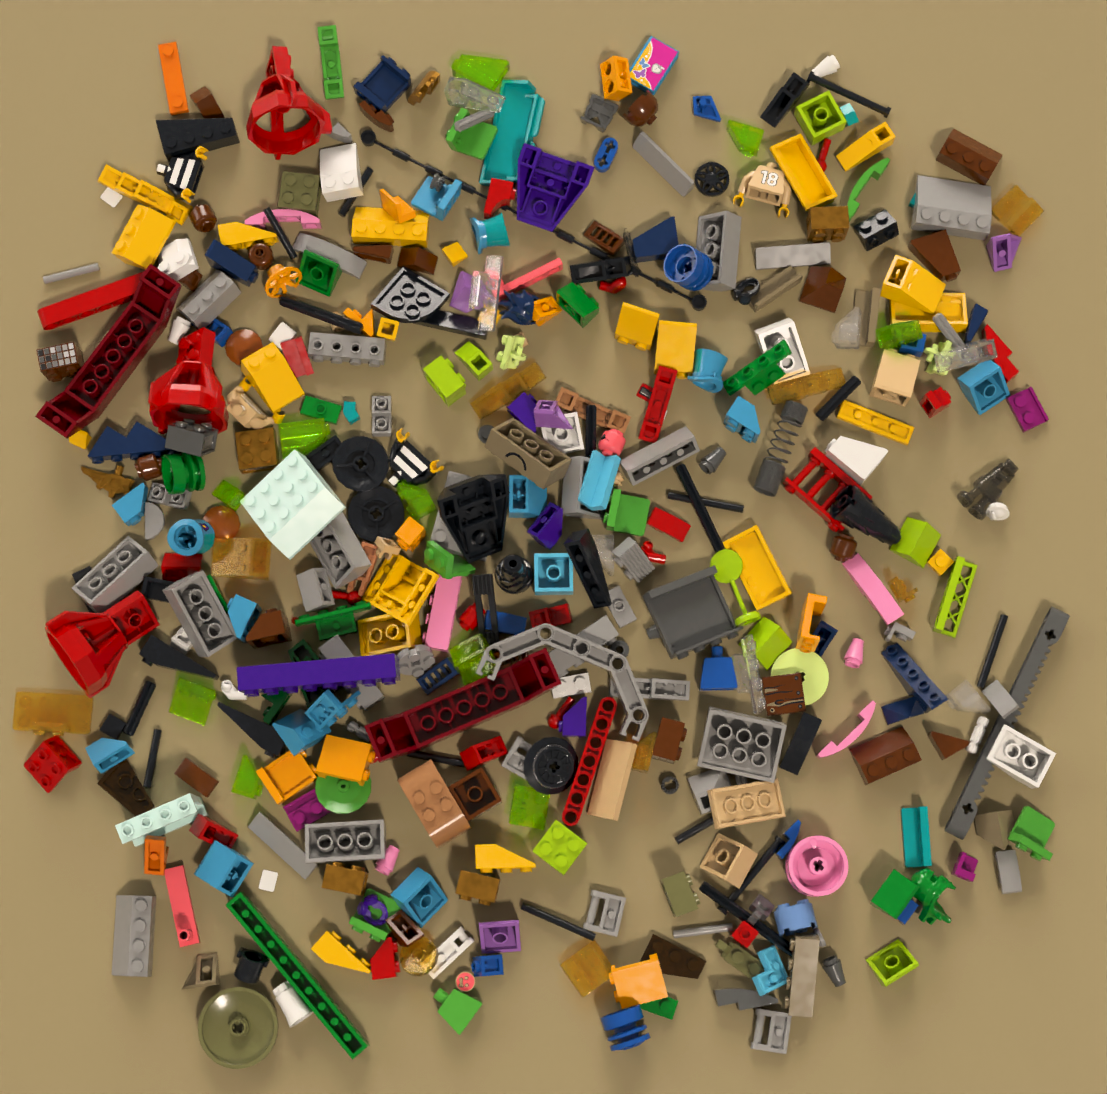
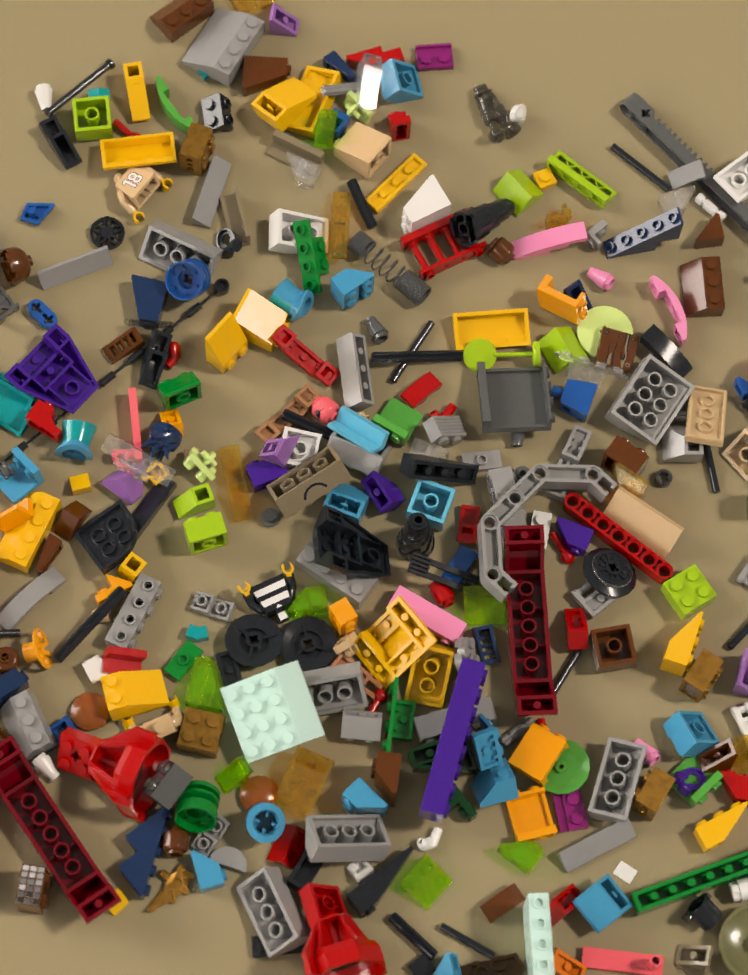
camera: 75 degrees left, 10 degrees down
(261, 733) = (483, 825): black slope -> none
(319, 273) = (46, 612): green slope -> none
(434, 804) = (608, 686): medium nougat brick -> none
(444, 563) = (383, 593): bright green bracket -> none
(529, 807) = (640, 607): clear neon green hinge -> none
(645, 392) = (287, 365): sticker -> none
(745, 137) = (81, 188): clear neon green slope -> none
(823, 288) = (253, 178): reddish brown slope -> none
(901, 710) = (666, 260): dark blue slope -> none

